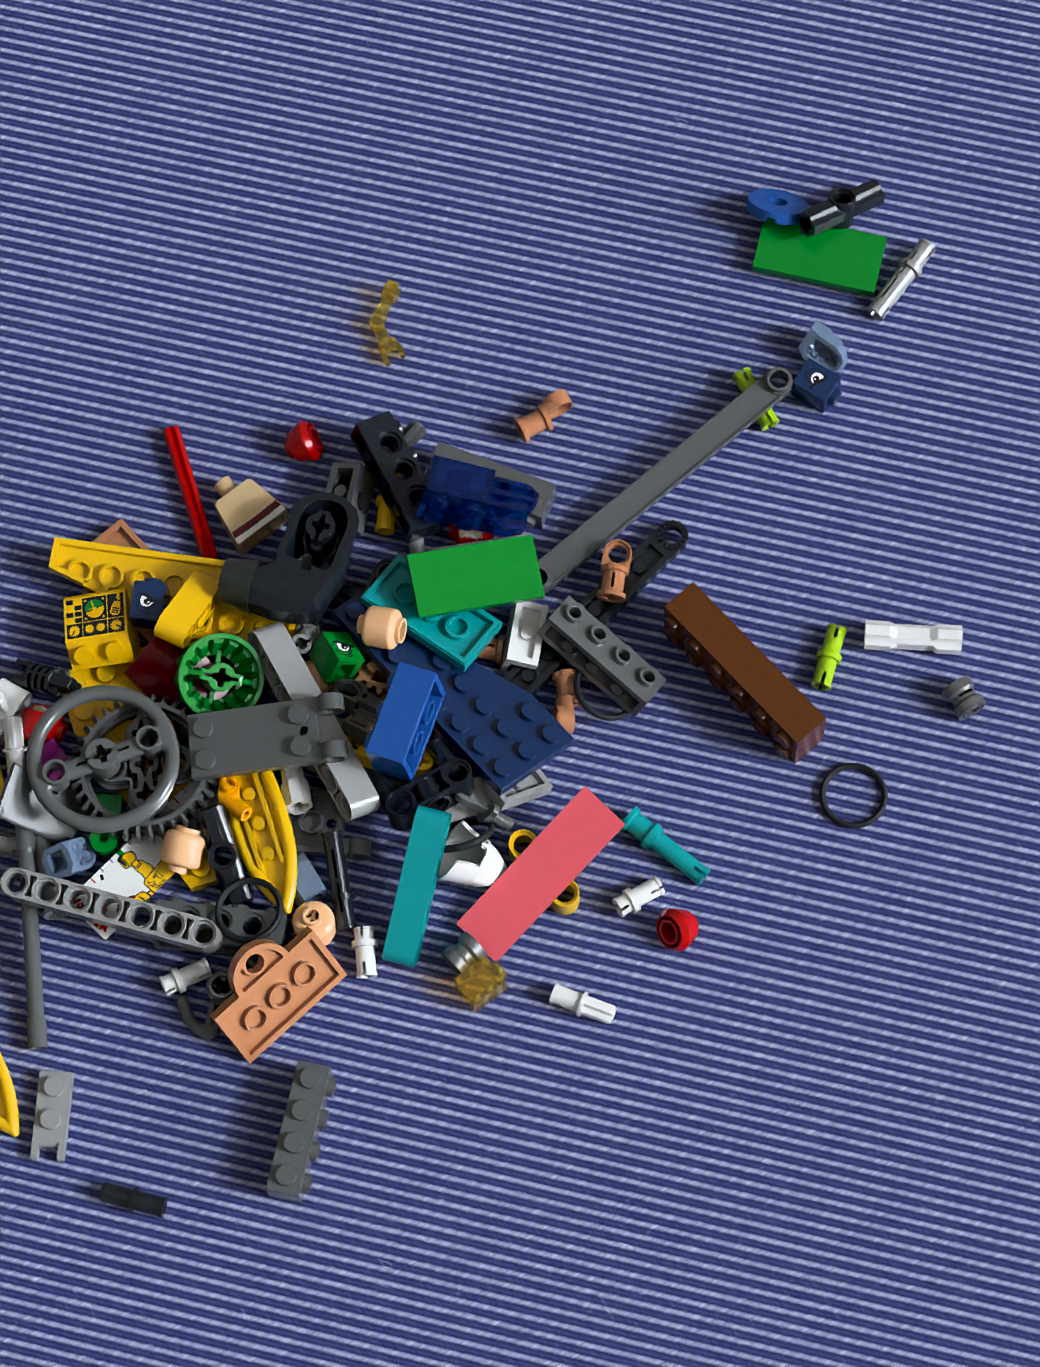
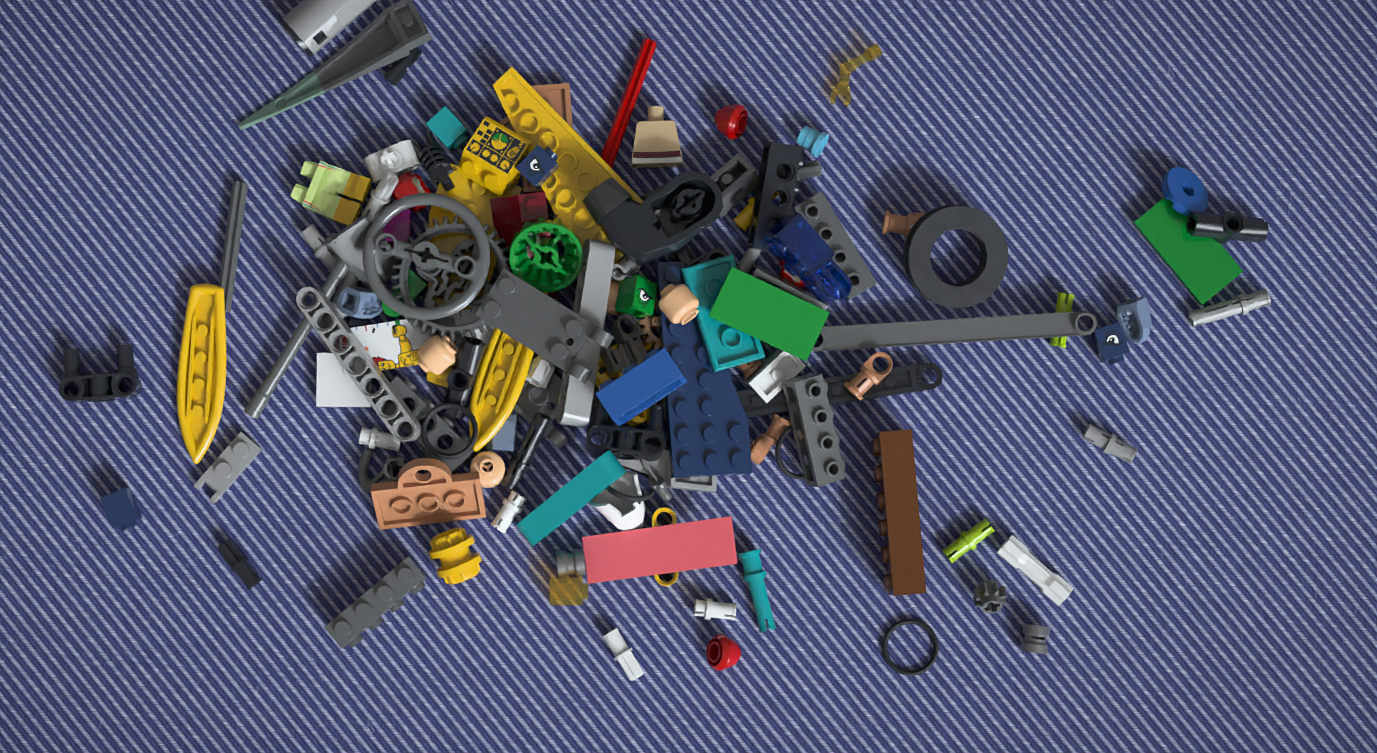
camera: 30 degrees right, 15 degrees up
(35, 642) = (448, 129): none -> teal brick
(106, 959) = (334, 387): none -> white tile
(188, 609) = (559, 192): yellow beam -> none
(230, 795) = (493, 344): light orange arm -> none
(344, 1028) = (455, 555): none -> yellow piece
(397, 404) = (812, 140): none -> medium azure piece
(636, 377) = (992, 259): none -> black tyre
(889, 475) = (1109, 443): none -> light grey pin
(890, 690) = (990, 596): none -> dark grey gear

